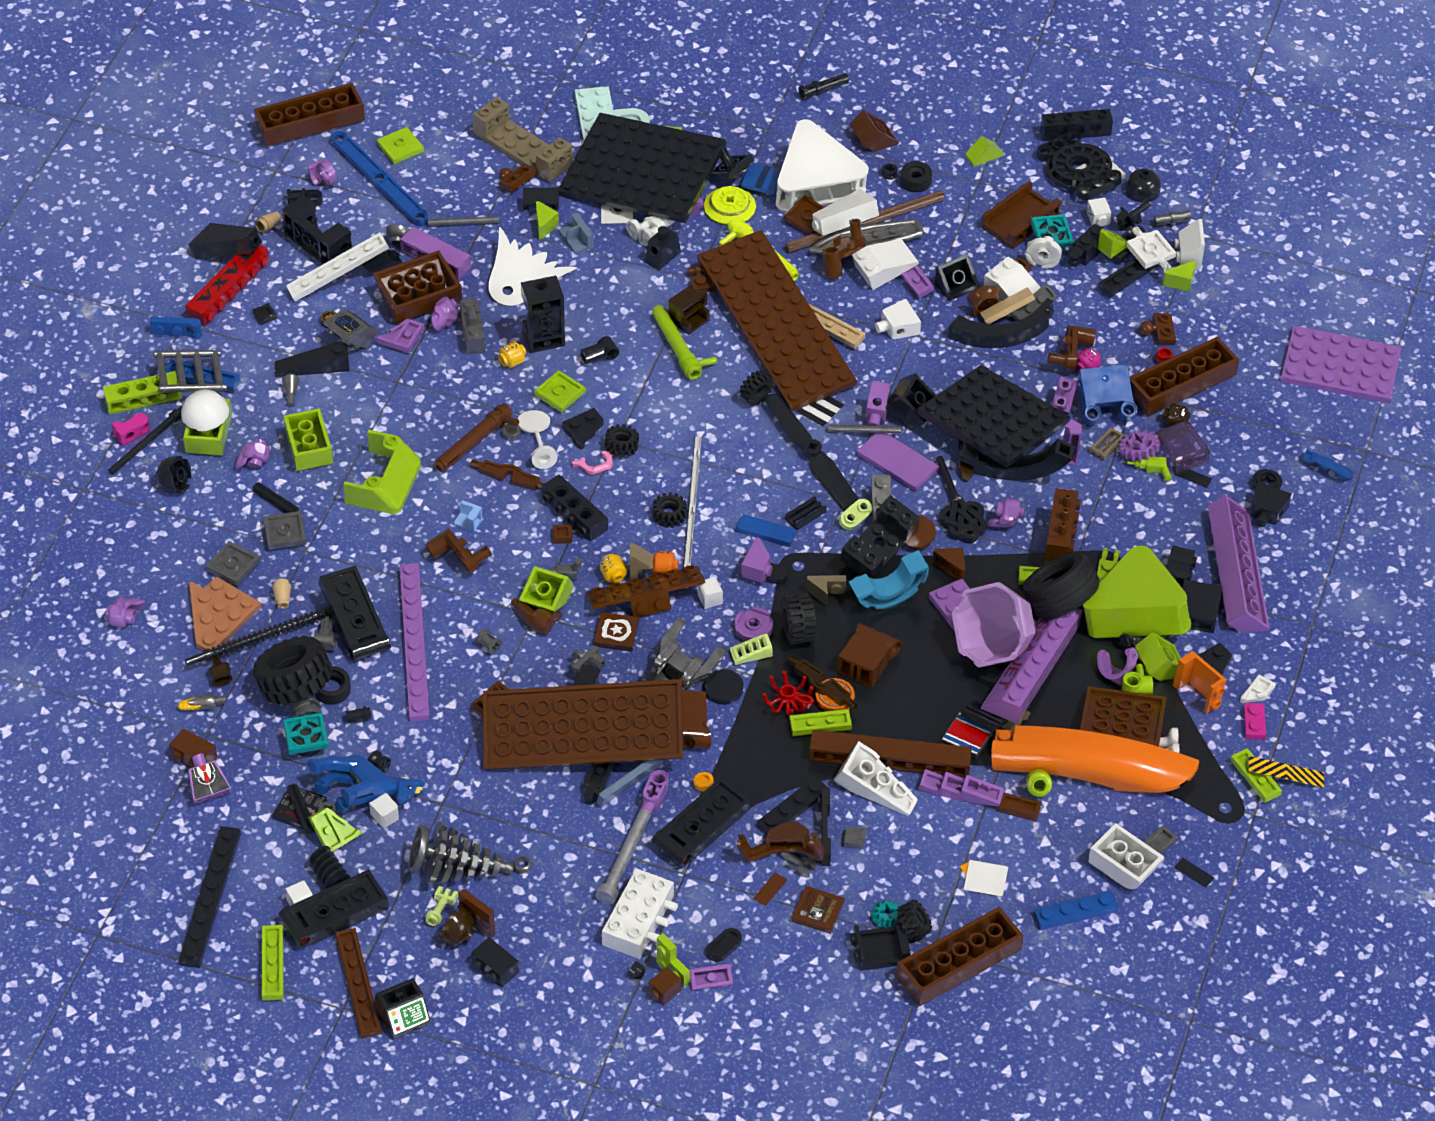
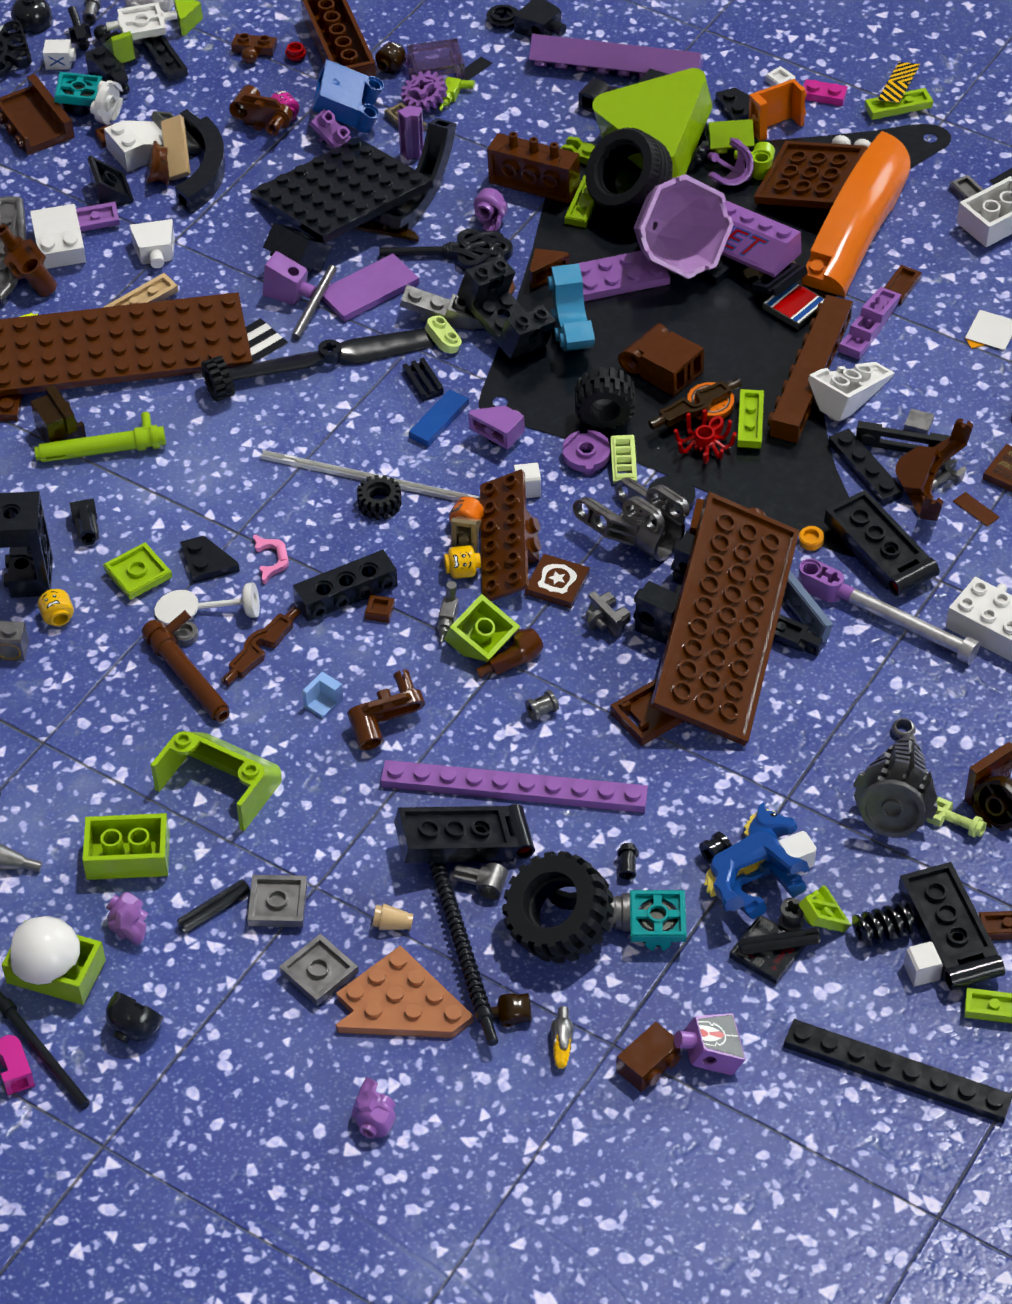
camera: 75 degrees left, 0 degrees up
(625, 447) = (254, 512): black tyre -> none
(822, 585) = (551, 379): dark tan slope -> none
(1038, 783) = (880, 257): lime head -> none

